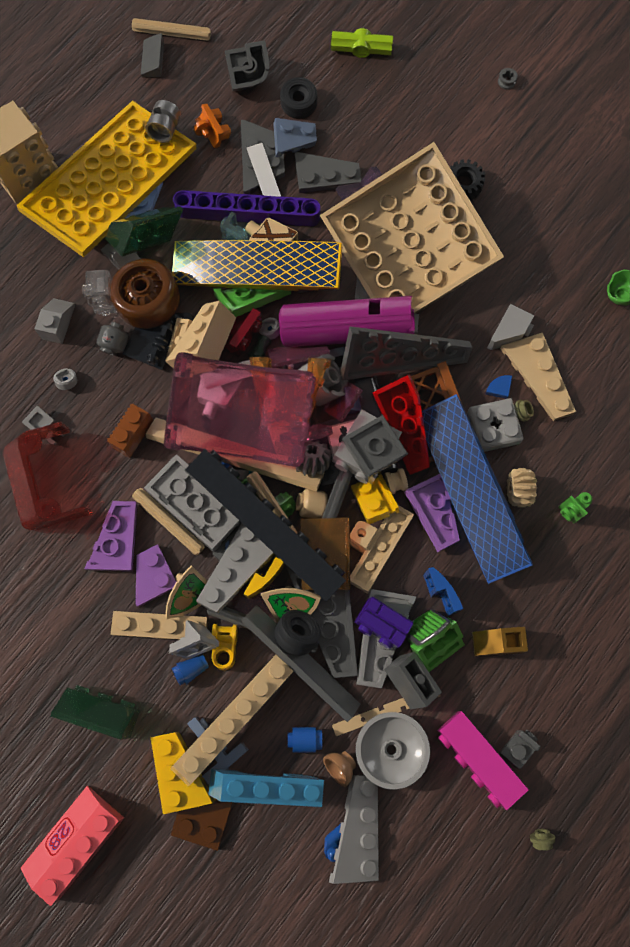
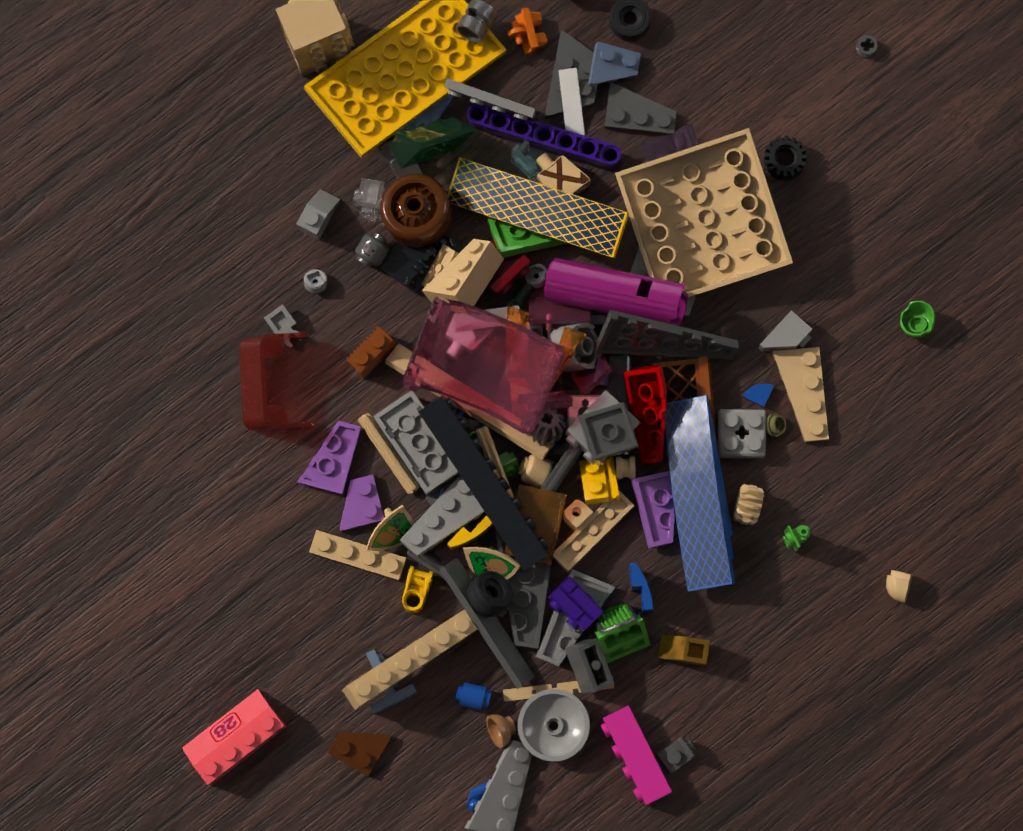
camera: 20 degrees right, 5 degrees up
(96, 712) = (283, 622): clear green slope -> none
(173, 791) = (340, 712): yellow wedge -> none
(189, 669) = (378, 604): blue cone -> none
(190, 181) = (499, 103): none -> light grey wing
(196, 641) = (390, 579): light grey slope -> none
(262, 789) = (426, 727): dark azure arch -> none

